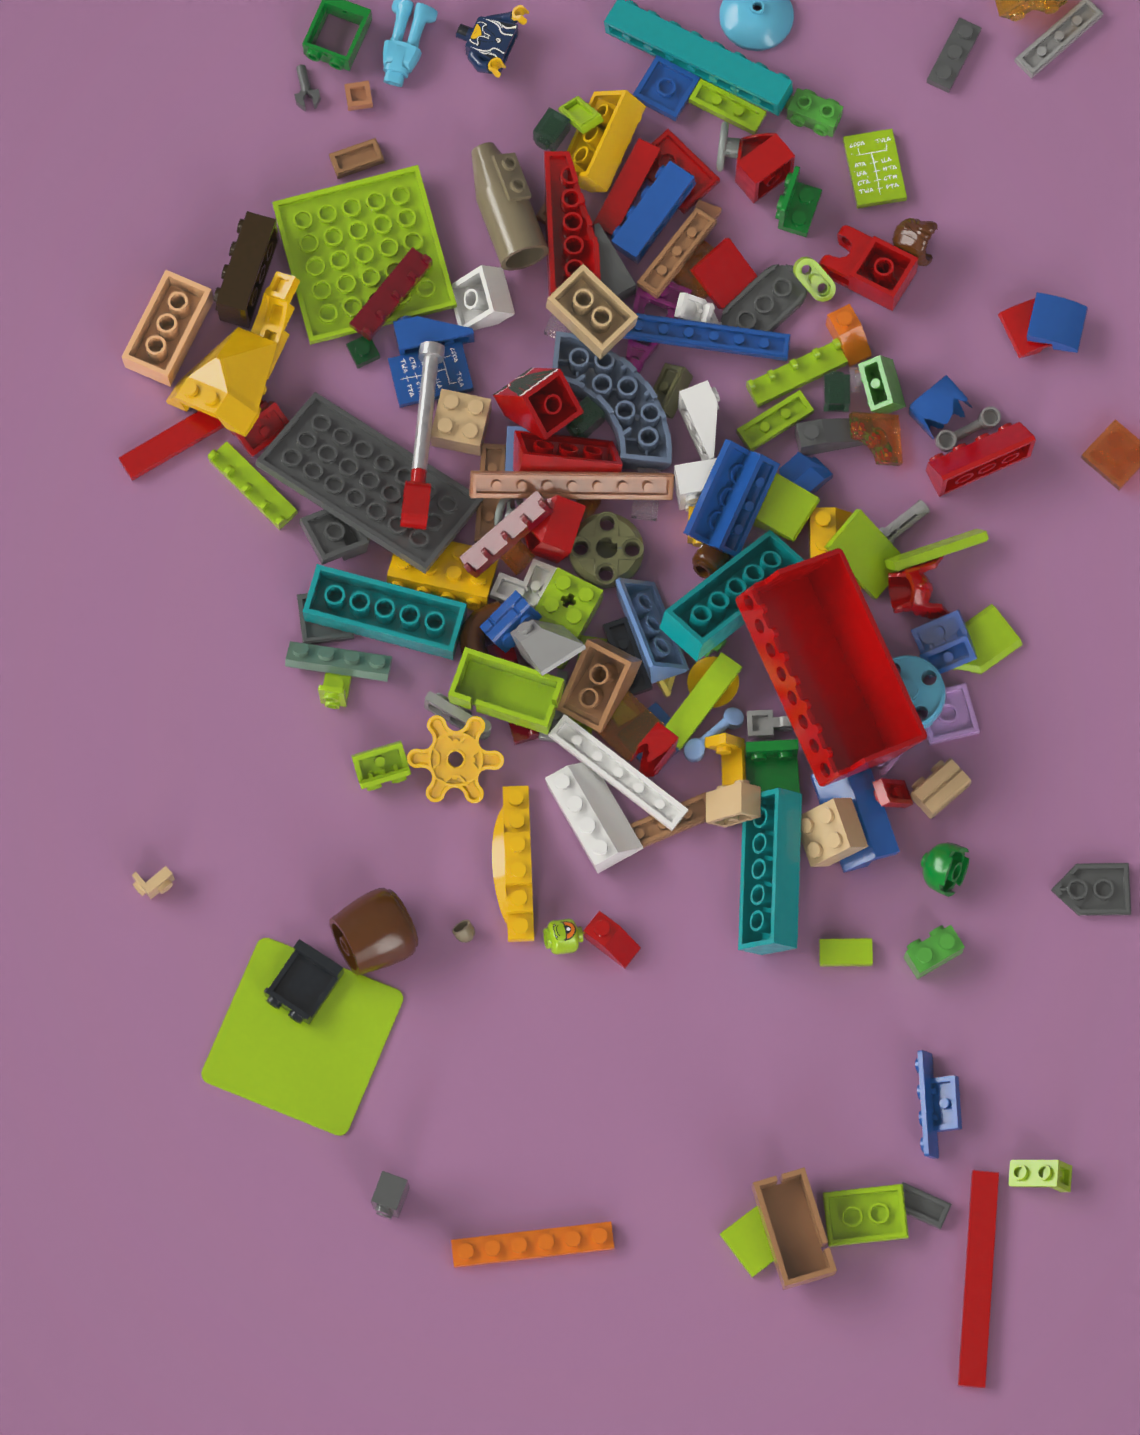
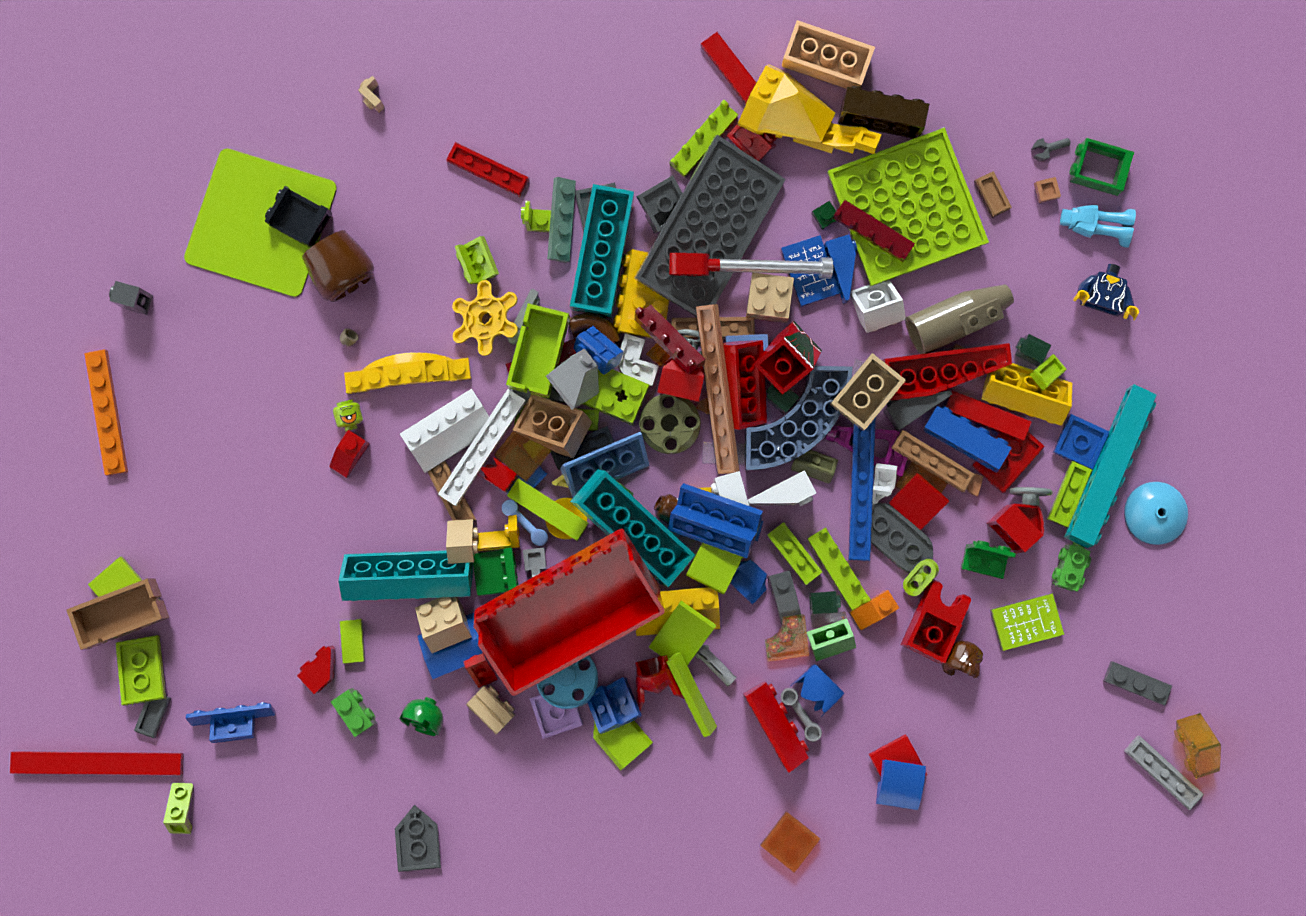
camera: 85 degrees right, 10 degrees up
(263, 748) = (487, 169): none -> red tile
(880, 990) = (320, 671): none -> red slope

